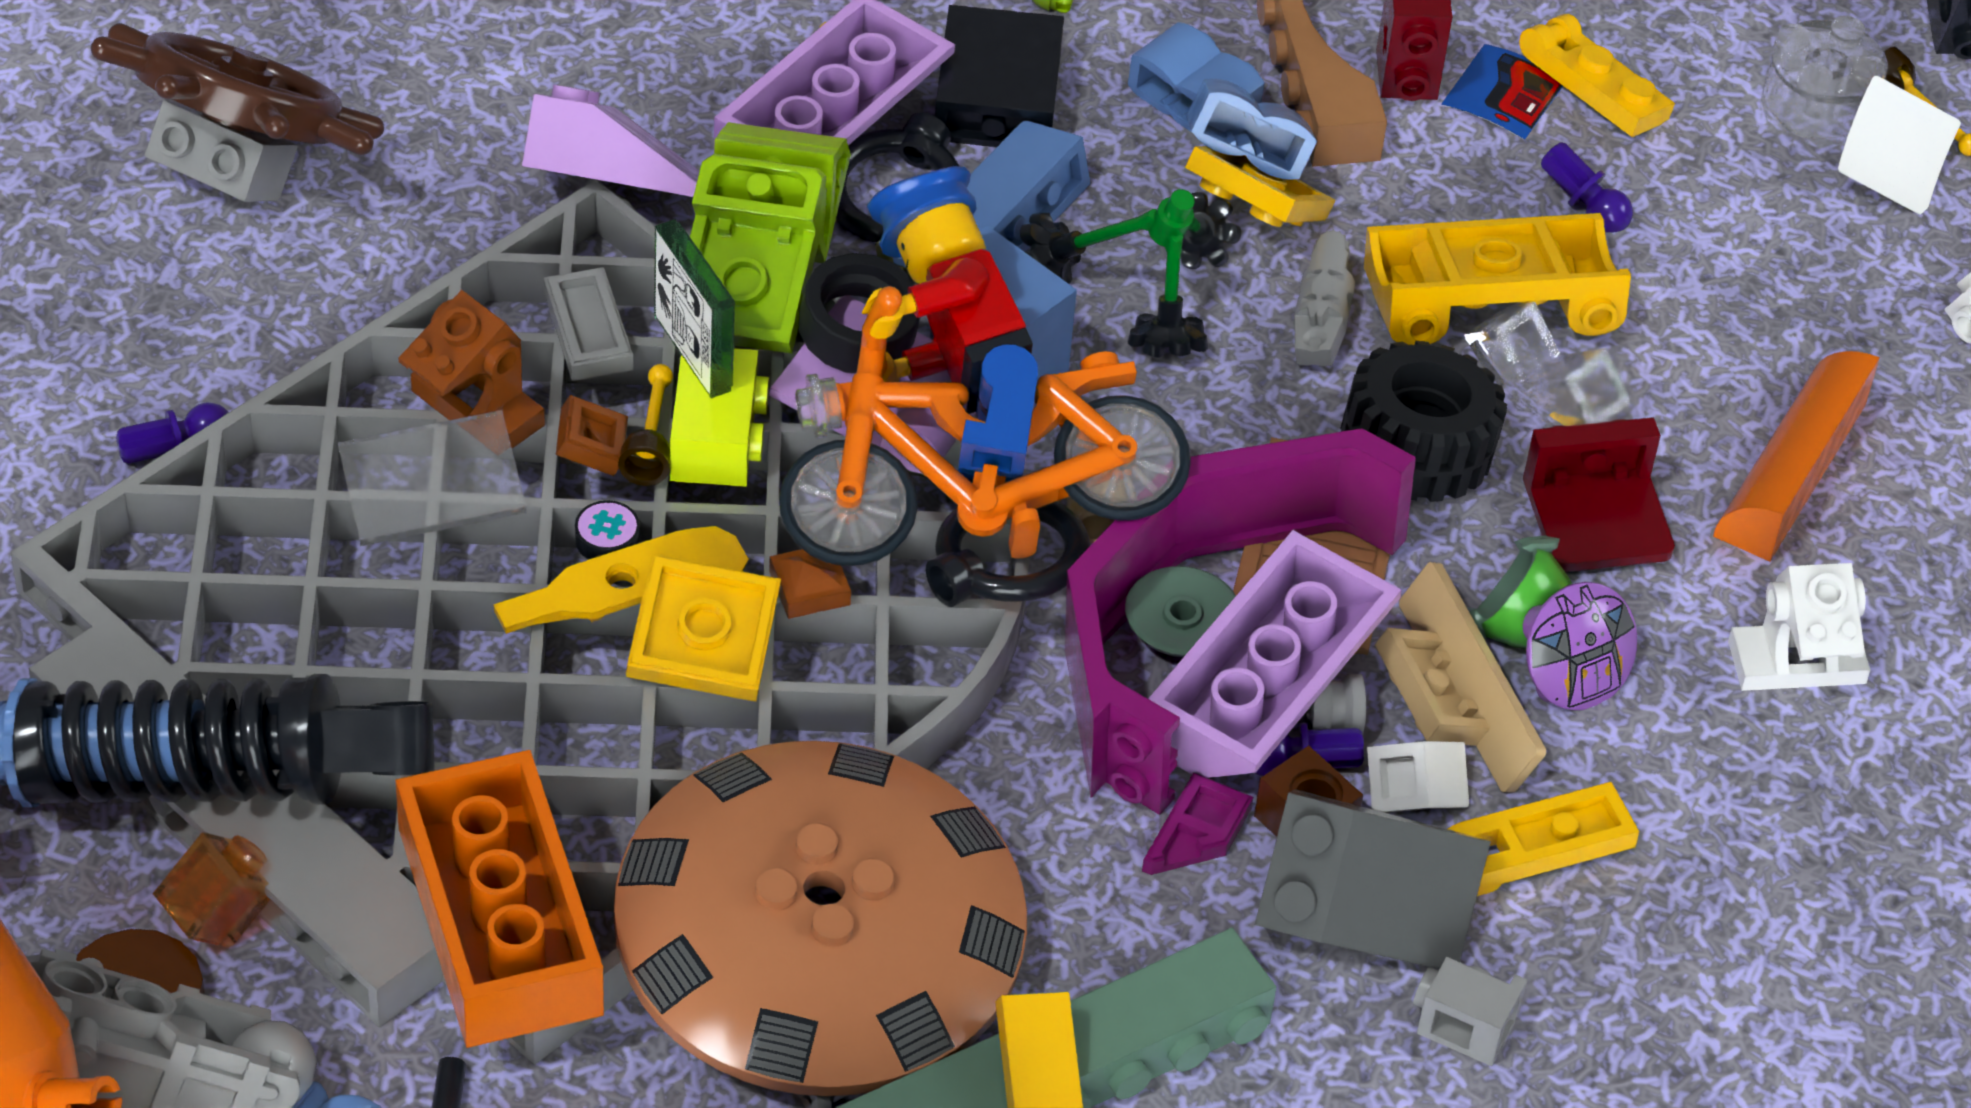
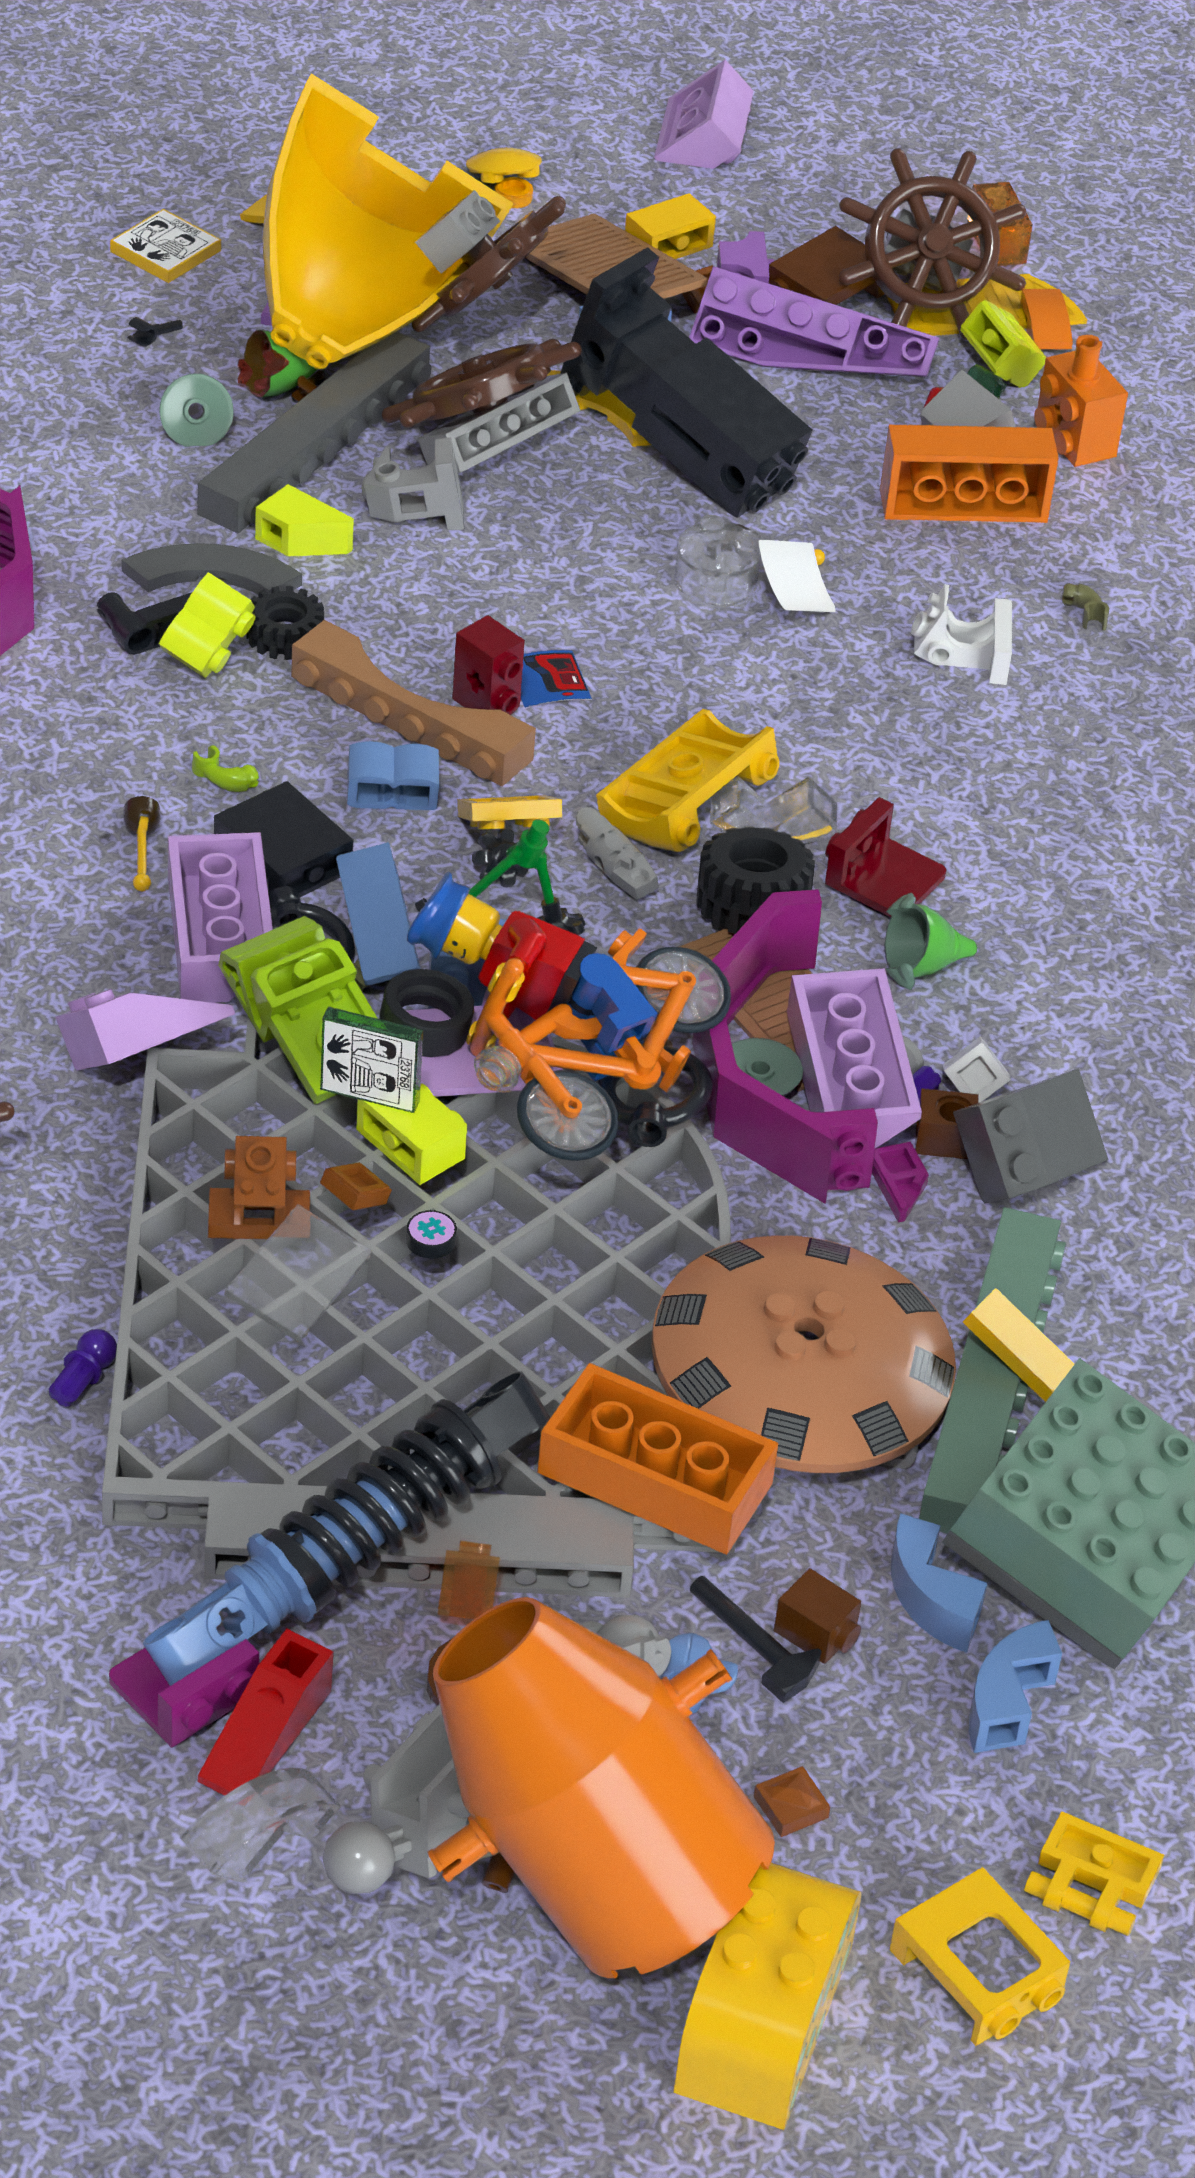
camera: 45 degrees left, 5 degrees down
(586, 587) = (483, 1233): yellow piece -> none
(588, 324) = (249, 1117): light grey tile -> none
(646, 452) = (402, 1173): dark brown hinge -> none
(703, 628) = (557, 1245): yellow tile -> none
(809, 583) = (573, 1183): dark orange tile -> none
(1236, 125) = (477, 777): medium blue brick -> none
(1456, 681) = (946, 1010): tan bracket -> none
(1468, 1009) = (1146, 1169): light grey brick -> none
(1552, 834) = (1073, 1046): yellow plate -> none
(1580, 645) = (975, 946): medium lavender dish -> none
(1583, 185) = (663, 702): dark purple axle -> none
(1595, 75) = (590, 637): yellow plate -> none
(1798, 454) = (944, 774): orange brick -> none
(1816, 613) = (1077, 847): white tile -> none

